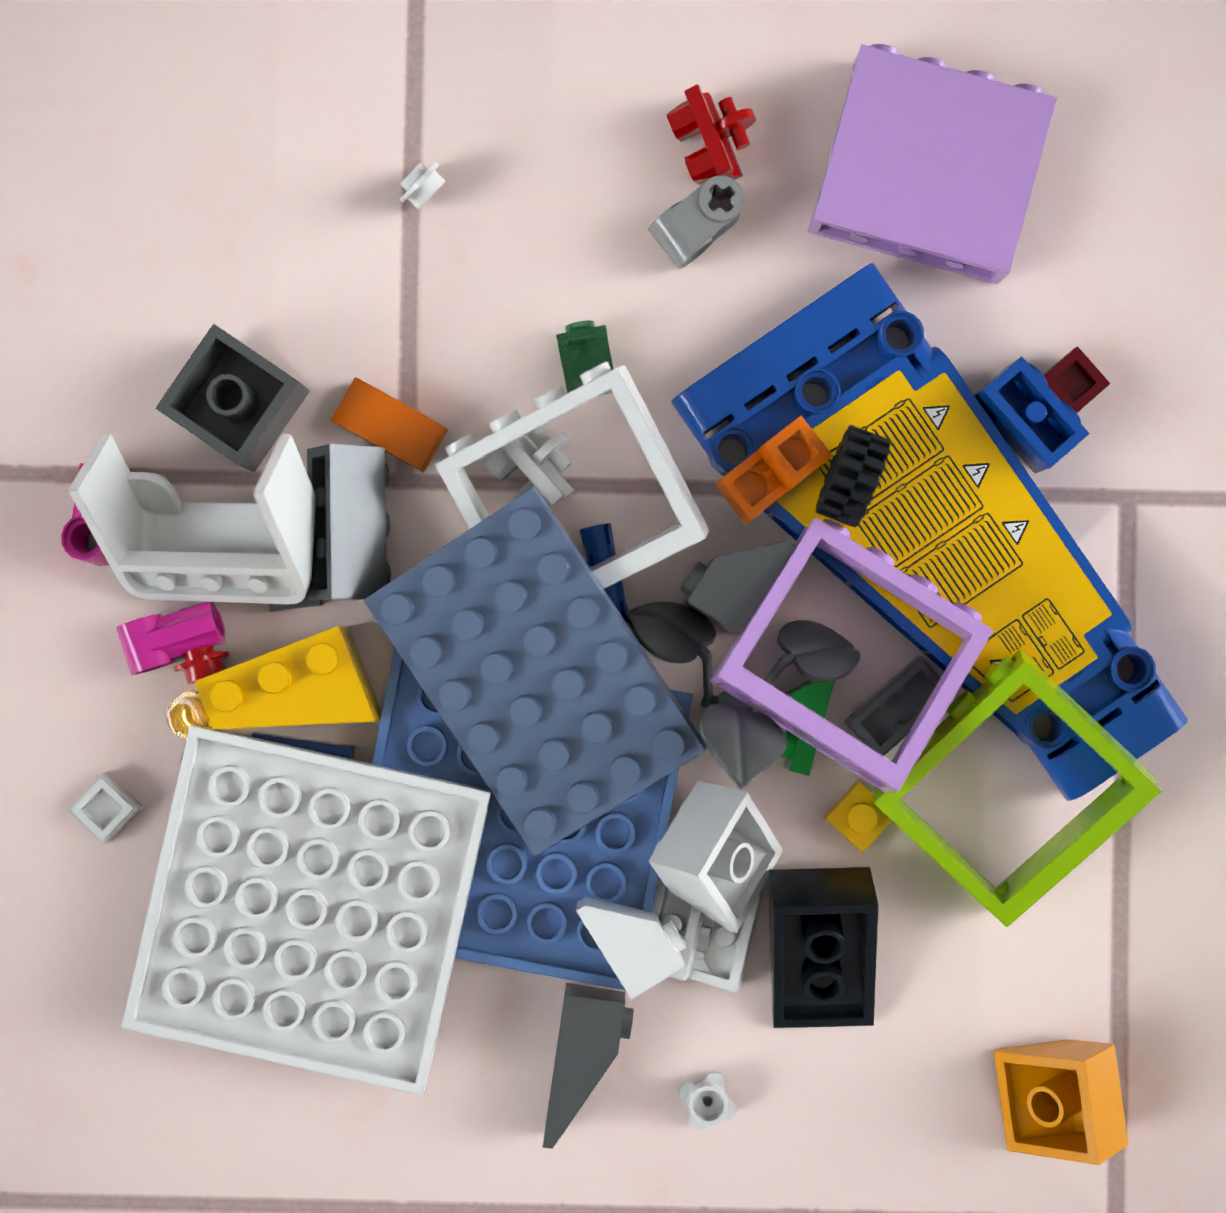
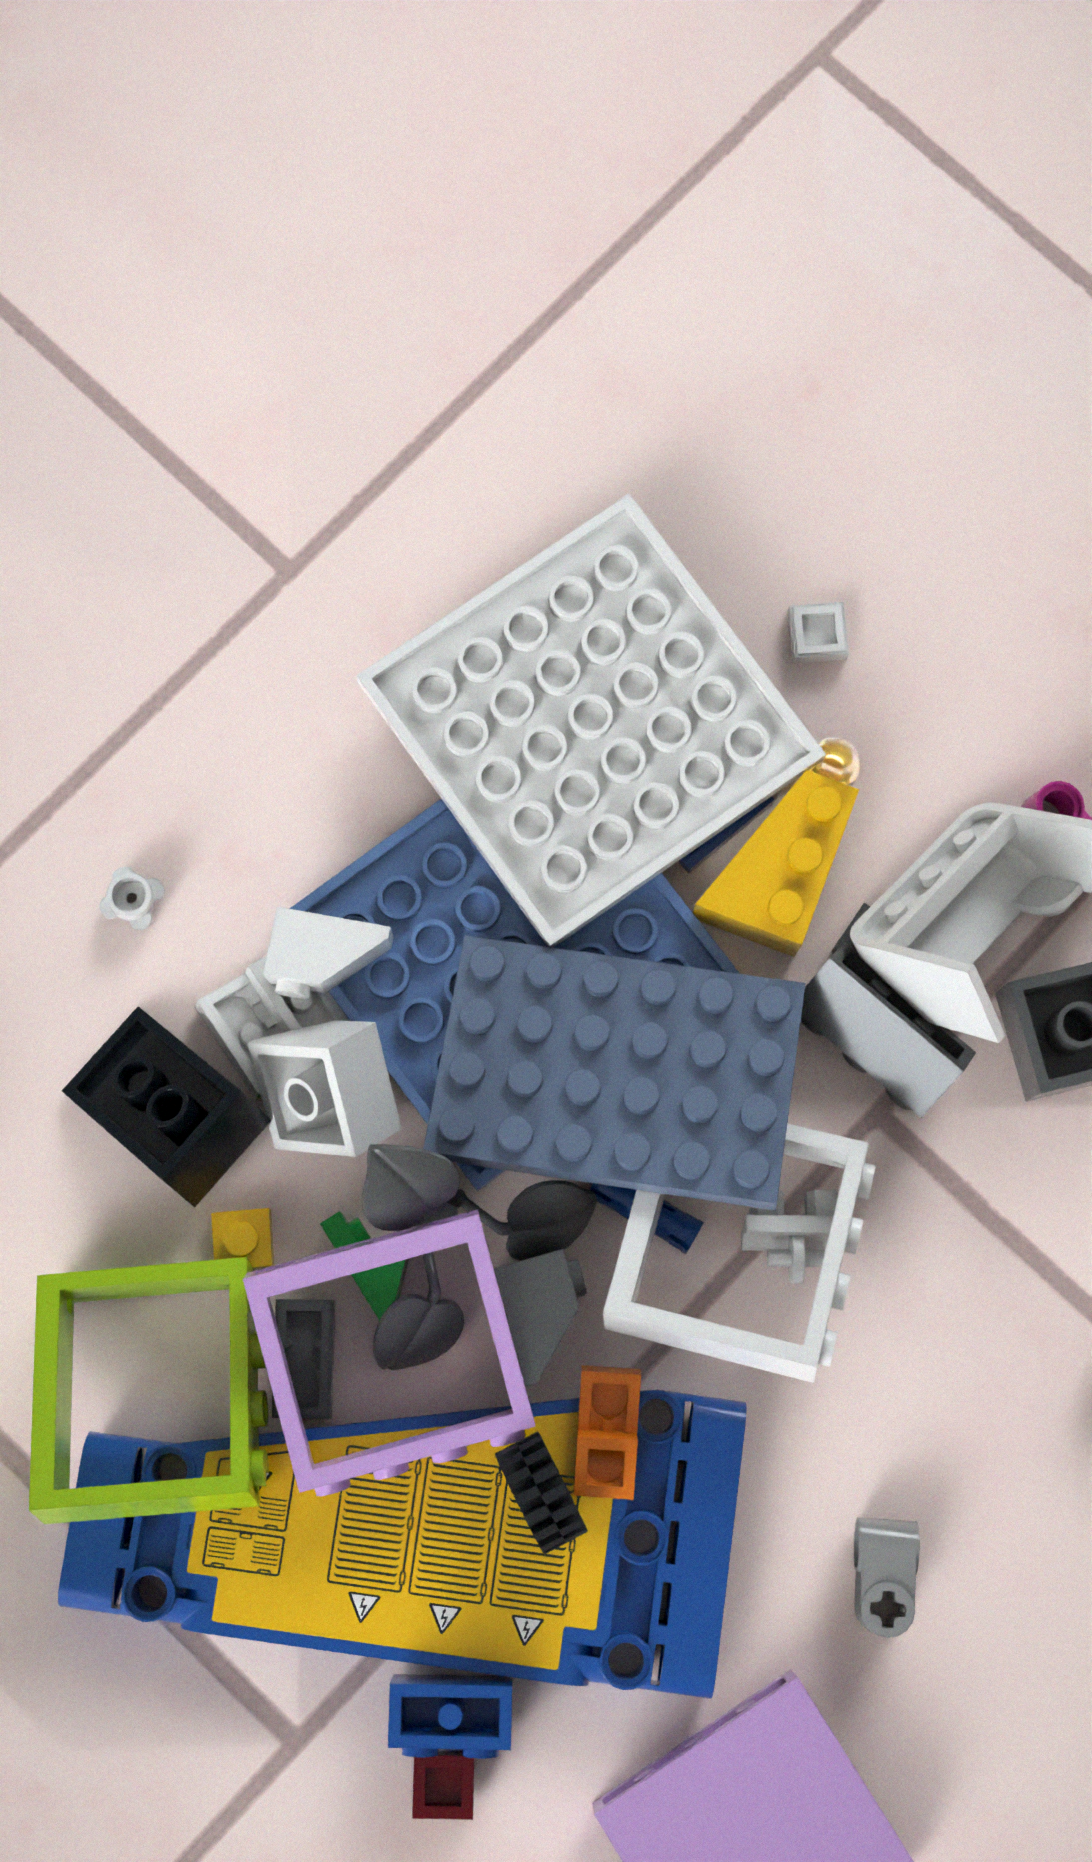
camera: 130 degrees right, 10 degrees down
(158, 640) = (918, 794): dark pink piece -> none
(202, 663) = (868, 810): red plate -> none
(389, 424) = (937, 1141): orange slope -> none
(581, 350) = (856, 1365): clear green bracket -> none
(586, 1047) = (271, 841): dark grey slope -> none
(701, 116) = (951, 1668): red hips -> none

